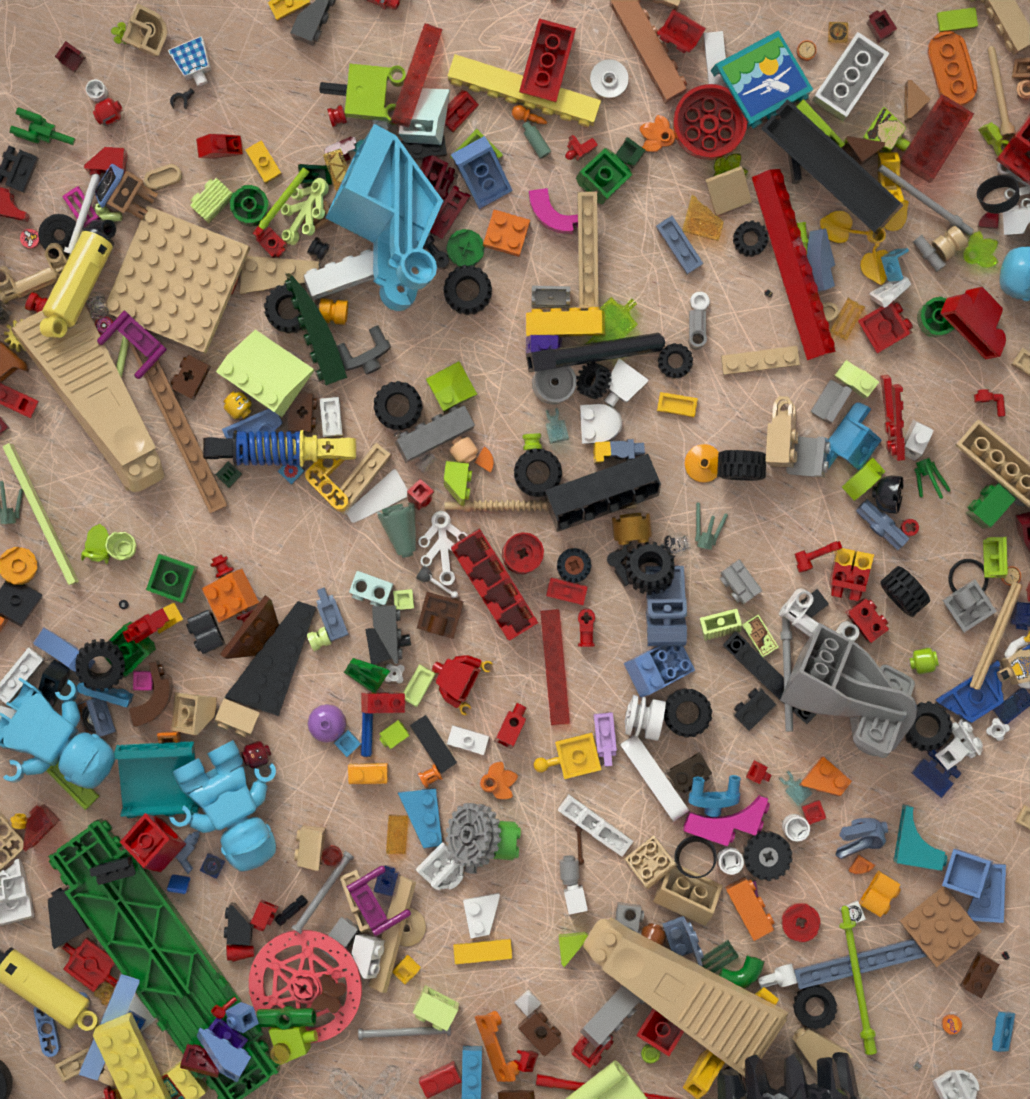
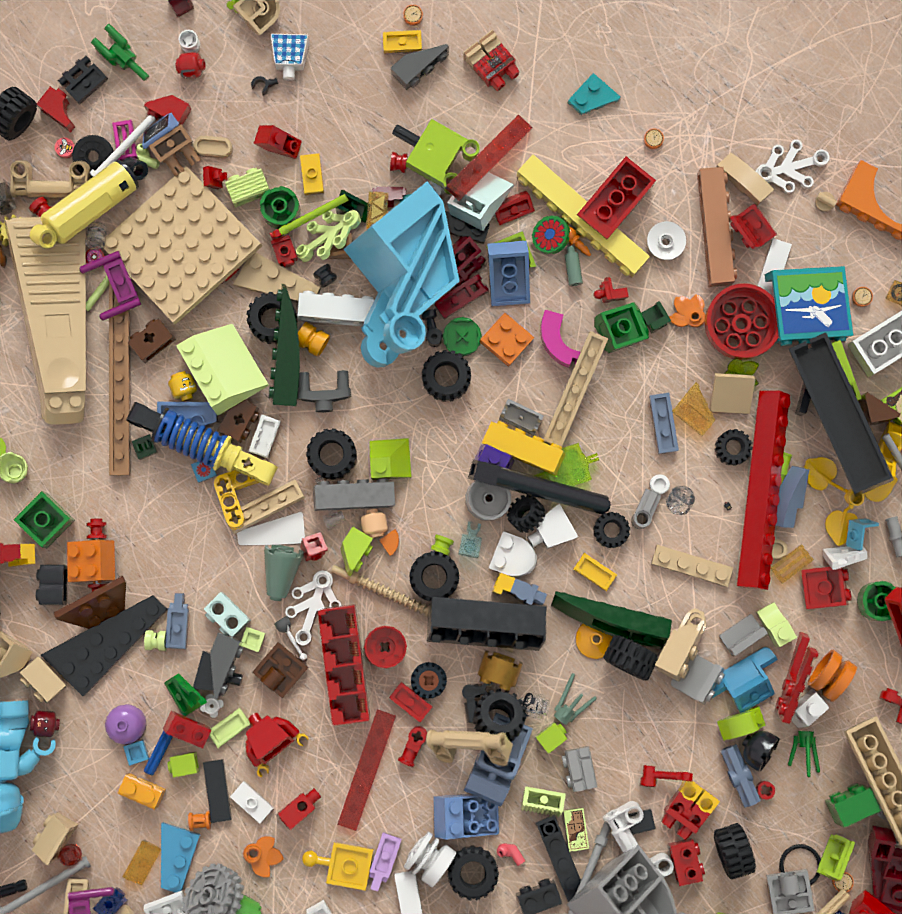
camera: 20 degrees right, 5 degrees down
(177, 205) = (213, 177): none -> red tile
(503, 120) = (551, 234): none -> tile
(614, 611) = (446, 743): none -> tan piece
(703, 565) = (552, 736): none -> lime brick
(712, 679) = (510, 850): none -> coral arm
(713, 439) = (615, 620): none -> dark green slope
(724, 307) = (680, 500): none -> clear head
(924, 401) = (832, 675): none -> orange wheel

